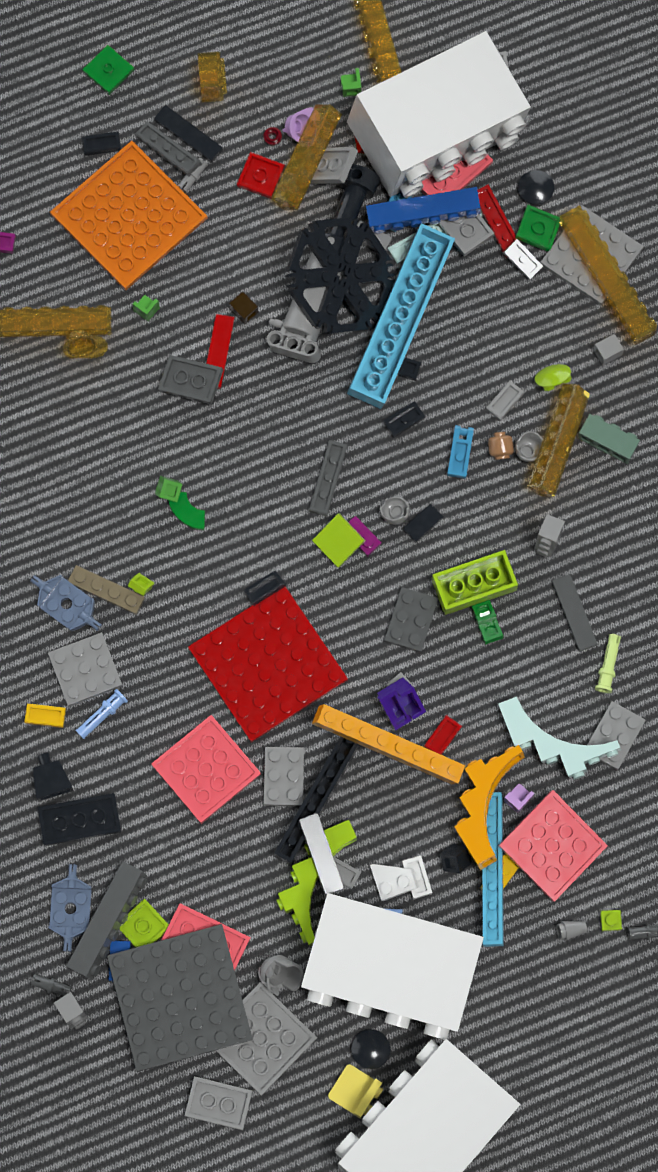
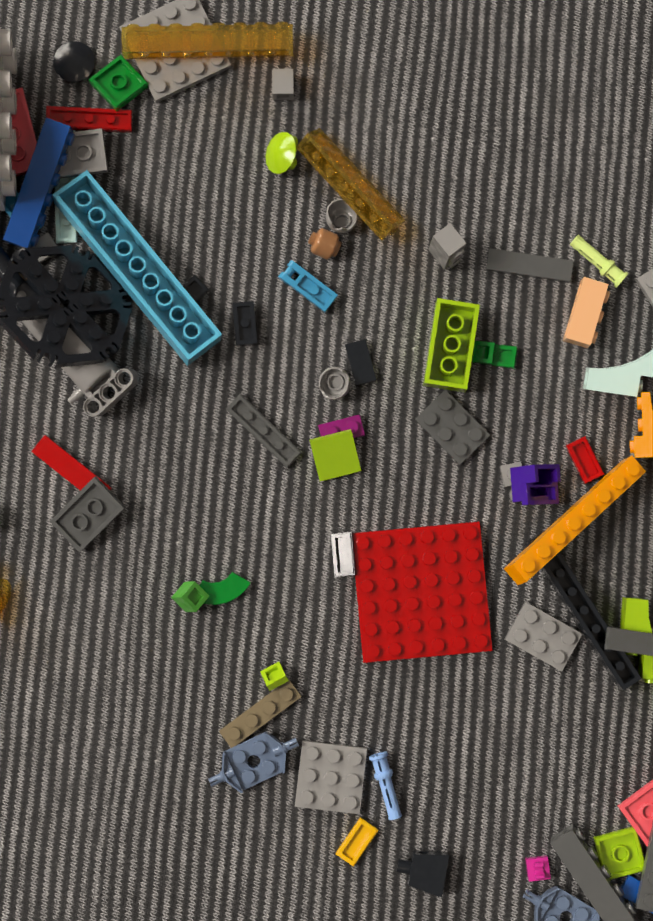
camera: 65 degrees left, 10 degrees up
(79, 819) = (482, 863): black plate -> none
(97, 867) = (537, 868): none -> dark pink tile
(206, 769) = (497, 710): coral plate -> none
(243, 308) = (40, 420): dark brown panel -> none
(505, 400) = (278, 214): light grey tile -> none
(522, 259) = (143, 115): plate -> none
(561, 675) = (586, 312): none -> light nougat brick
(609, 438) = (374, 134): sand green brick -> none

